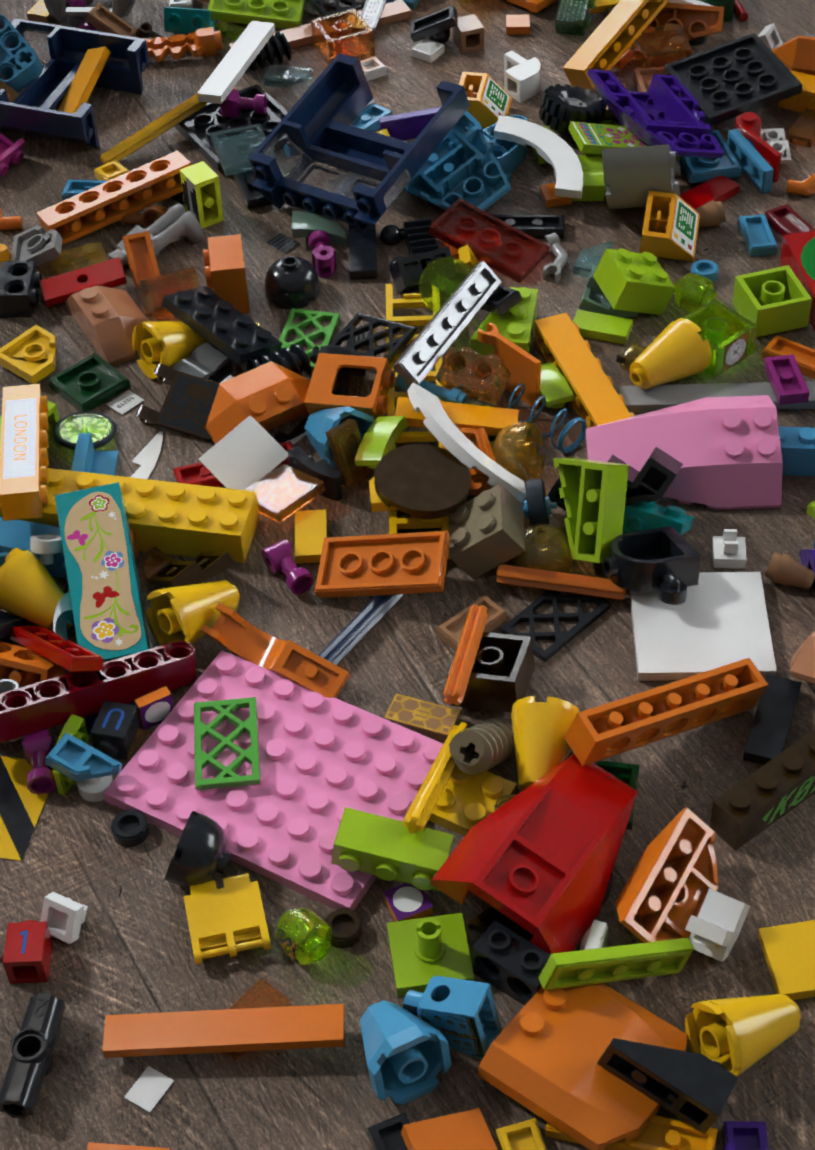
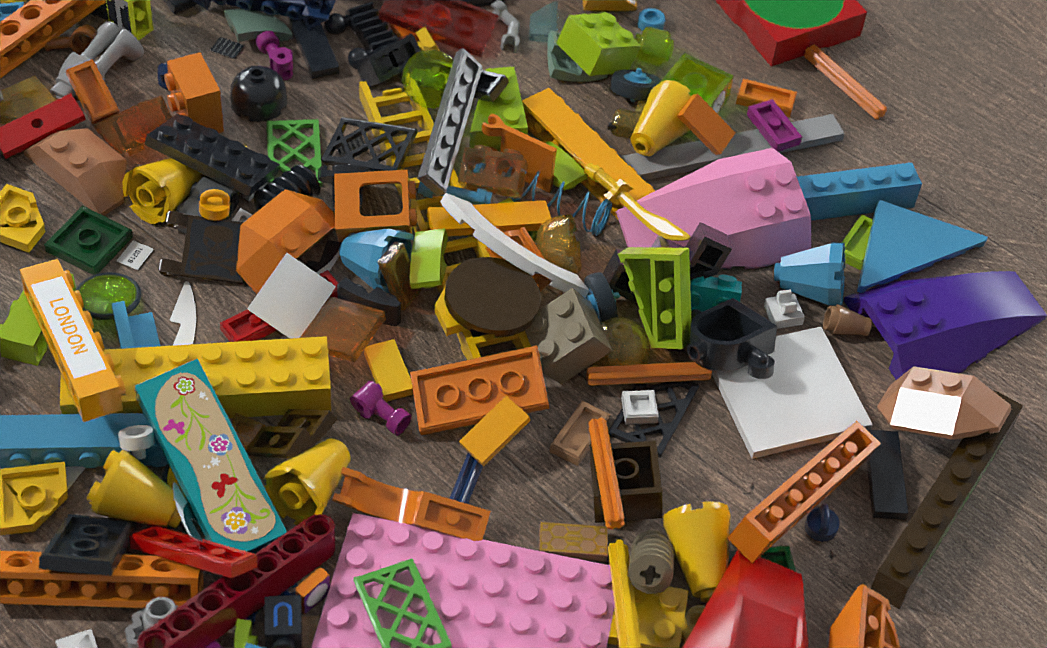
camera: 25 degrees left, 5 degrees up
(202, 364) = (214, 204): none -> light orange tile
(380, 601) = (494, 431): none -> light orange tile
(539, 611) = (639, 407): none -> white tile
(591, 414) = (618, 193): none -> yellow sword
(603, 326) = (582, 94): lime tile -> none
(652, 321) = (633, 84): none -> black wheel
(683, 753) = (822, 524): none -> dark blue tile
(710, 365) = (706, 124): none -> orange tile
(772, 300) = (731, 43): lime brick -> none
(773, 519) = (814, 273): none -> dark azure cone

